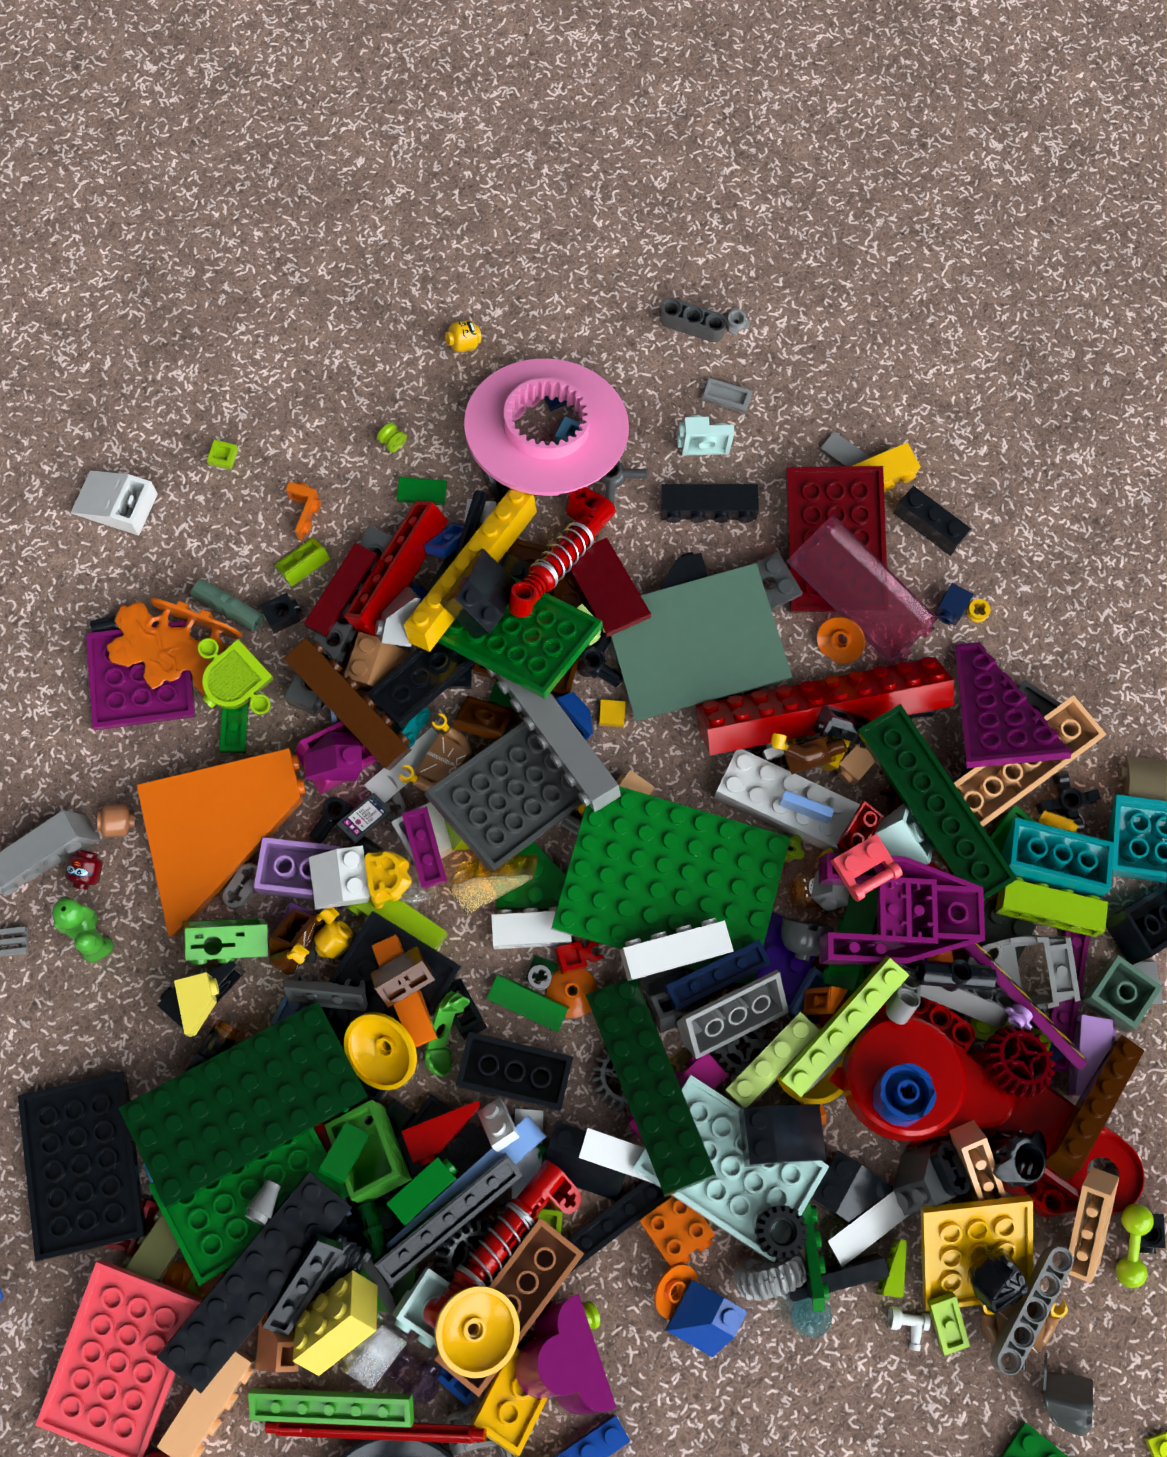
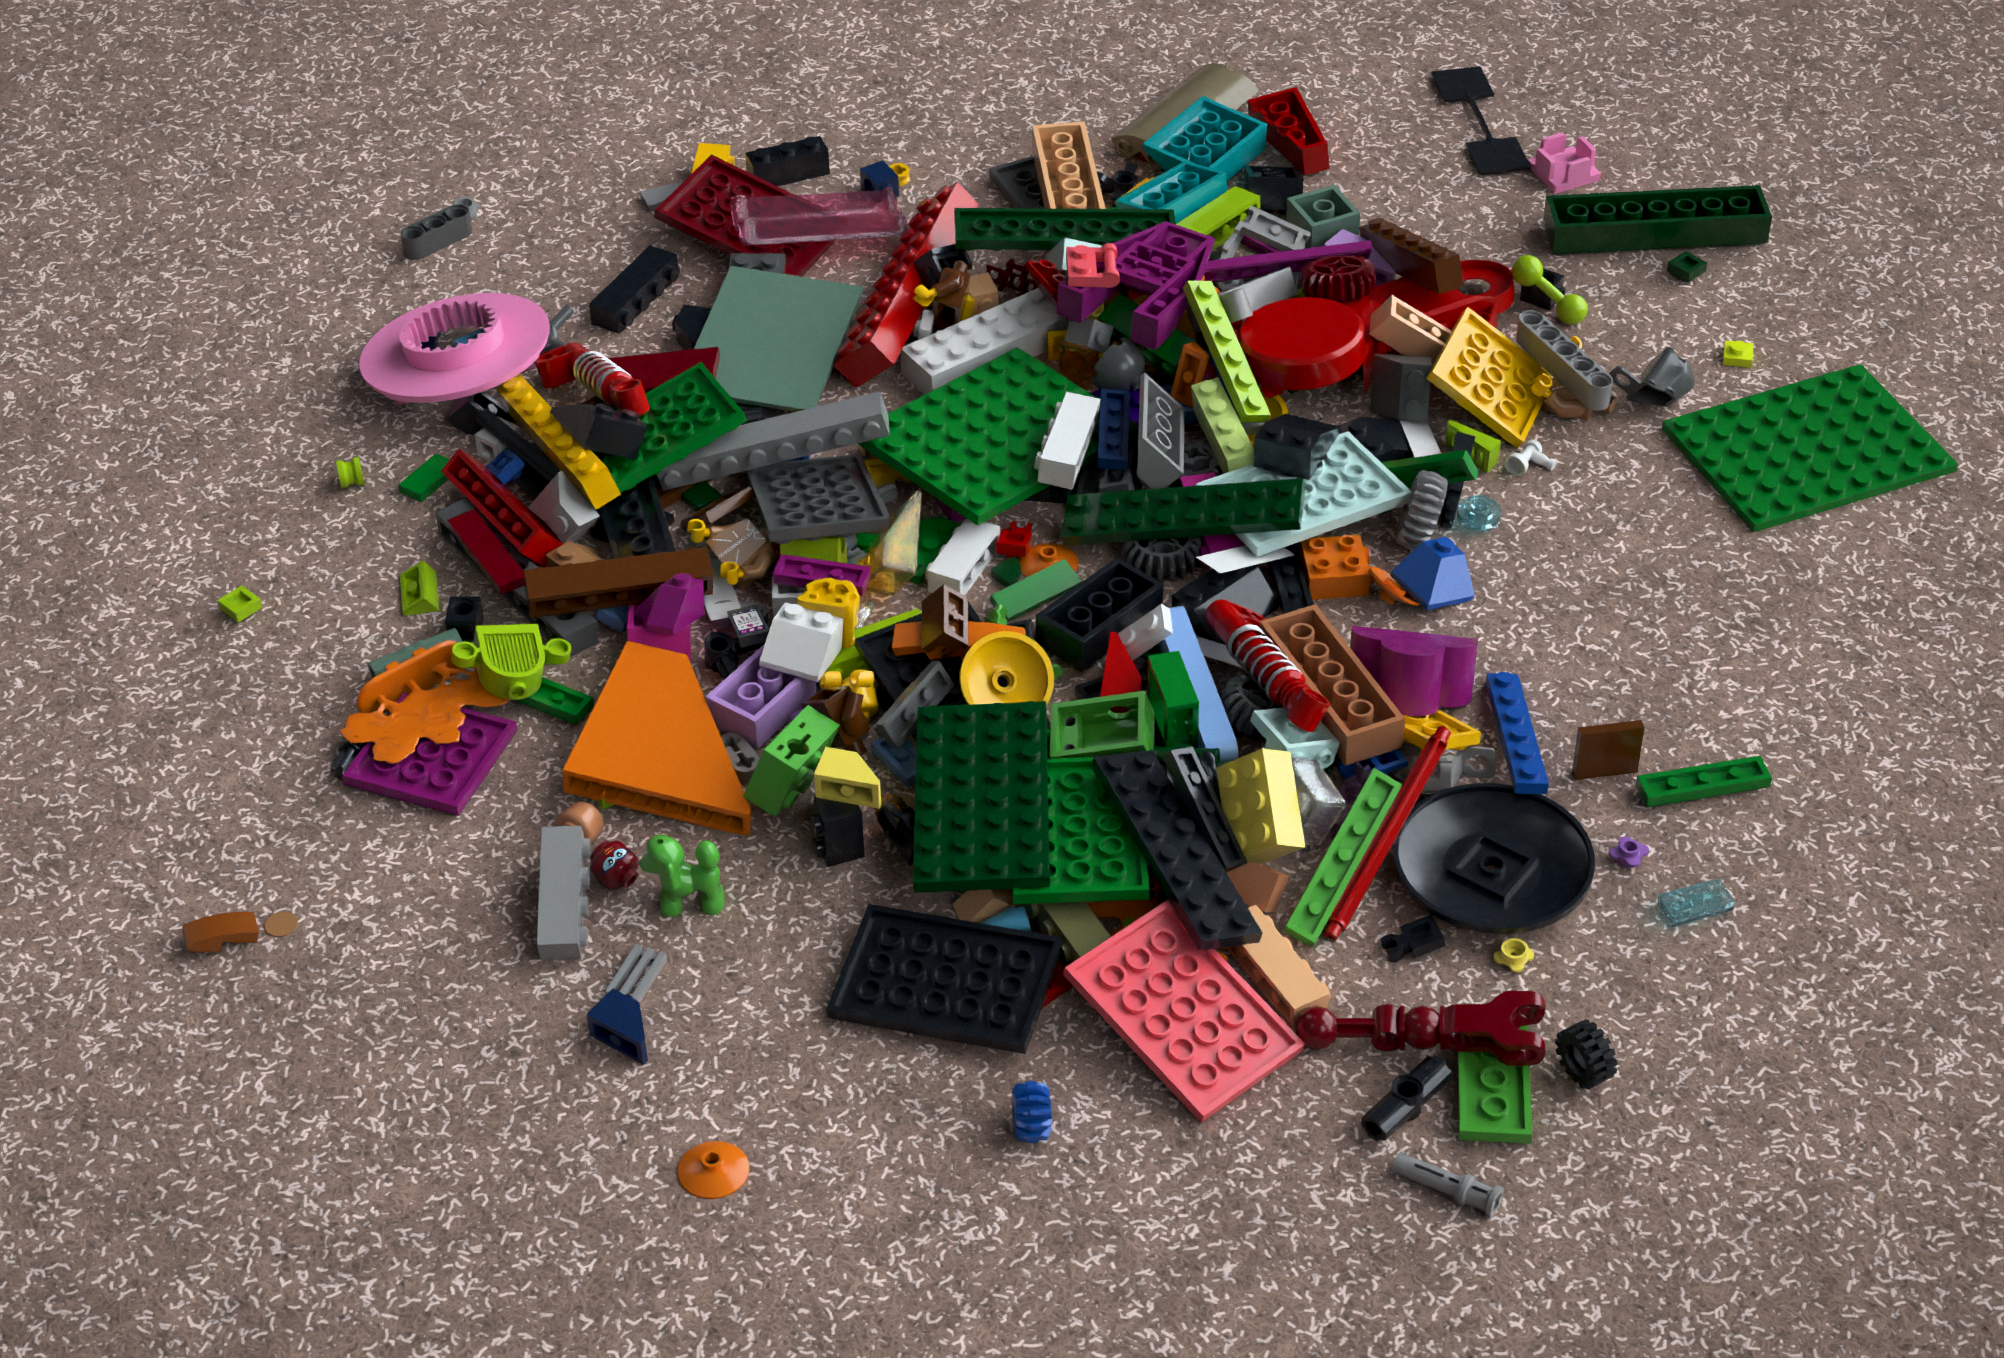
camera: 55 degrees left, 30 degrees down
(116, 500) = (209, 698): white slope -> none
(262, 1205) = (1101, 807): light grey cone -> none
(304, 494) = (356, 554): orange bracket -> none
(344, 1153) = (1091, 738): green tile -> none
(447, 1219) = (1213, 690): black tile -> none
(463, 336) = (291, 381): yellow head -> none
(491, 1342) = (1340, 676): yellow dish -> none
(535, 970) = (1017, 567): light grey bush -> none
(700, 438) = (568, 259): light aqua plate -> none
(726, 395) = (534, 244): light grey tile -> none
(797, 1226) = (1387, 470): black tyre -> none
(806, 806) = (999, 314): light blue tile -> none
(834, 647) = (860, 247): orange dish -> none
(919, 1094) = (1317, 320): blue brick -> none
(948, 1323) = (1544, 430): lime plate -> none
(950, 1169) = (1404, 349): black beam -> none
(955, 975) = (1233, 270): black piece -> none
(996, 716) = (1017, 176): magenta wing -> none
(997, 1280) = (1521, 356): black piece -> none
(1015, 1150) = (1427, 299): black piece -> none
(1019, 1016) = (1294, 257): lavender plate -> none
(1092, 1223) = (1507, 282): light nougat brick -> none

